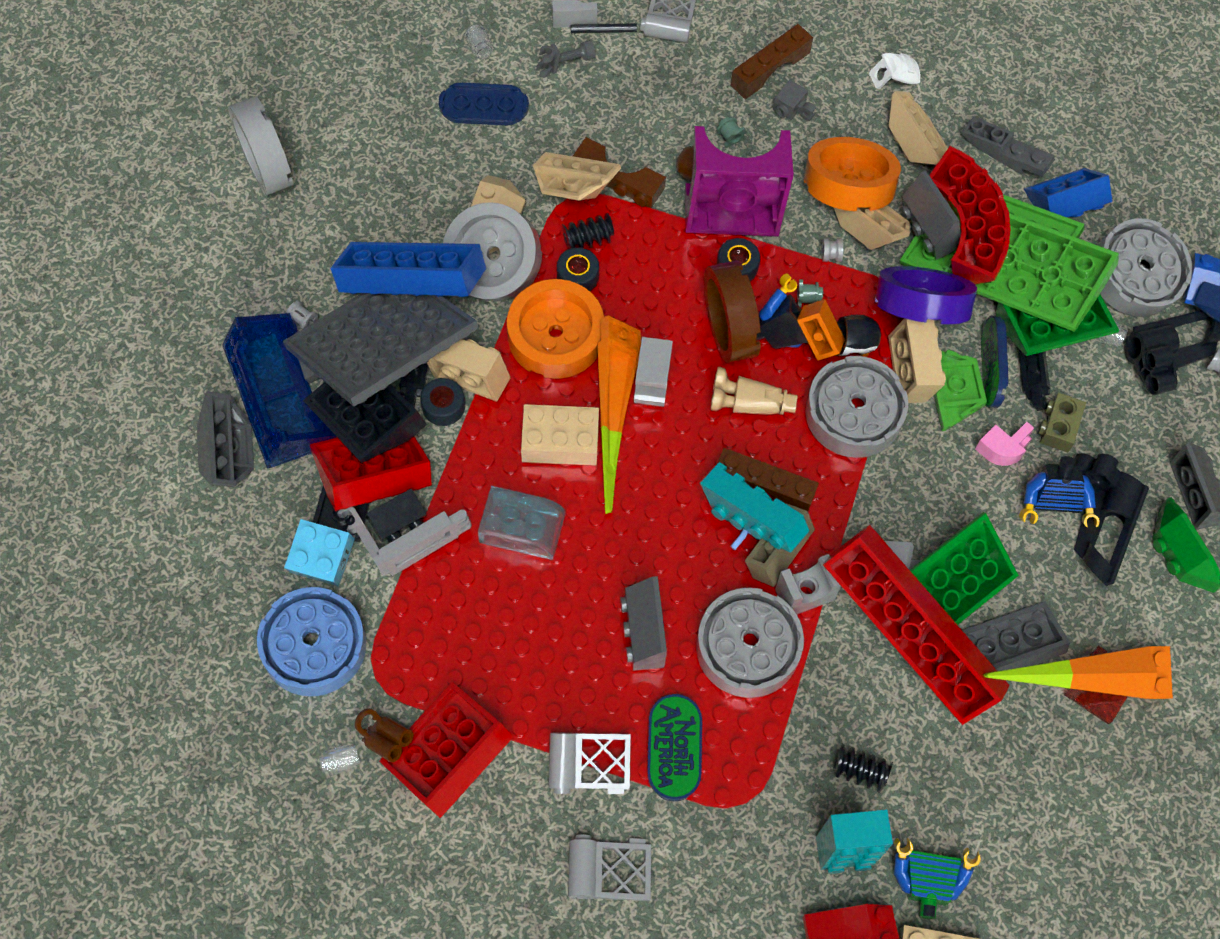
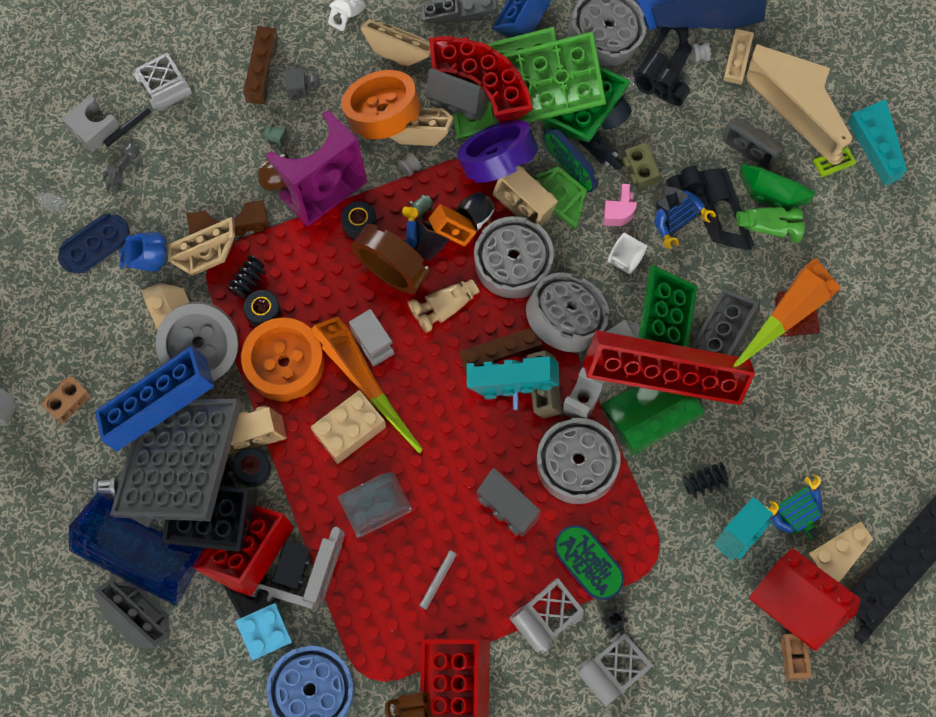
camera: 35 degrees left, 5 degrees up
(337, 220) = (70, 403): none -> medium nougat brick
(517, 641) = (438, 580): none -> light grey bar
(520, 142) = (144, 251): none -> blue piece
(651, 830) = (619, 625): none -> black gear
(845, 503) = (559, 325): none -> light grey brick
(861, 661) = (650, 415): none -> green slope
(974, 491) = (627, 253): none -> white piece
(1079, 354) = (618, 115): none -> black wheel
(1154, 576) = (772, 222): none -> bright green piece

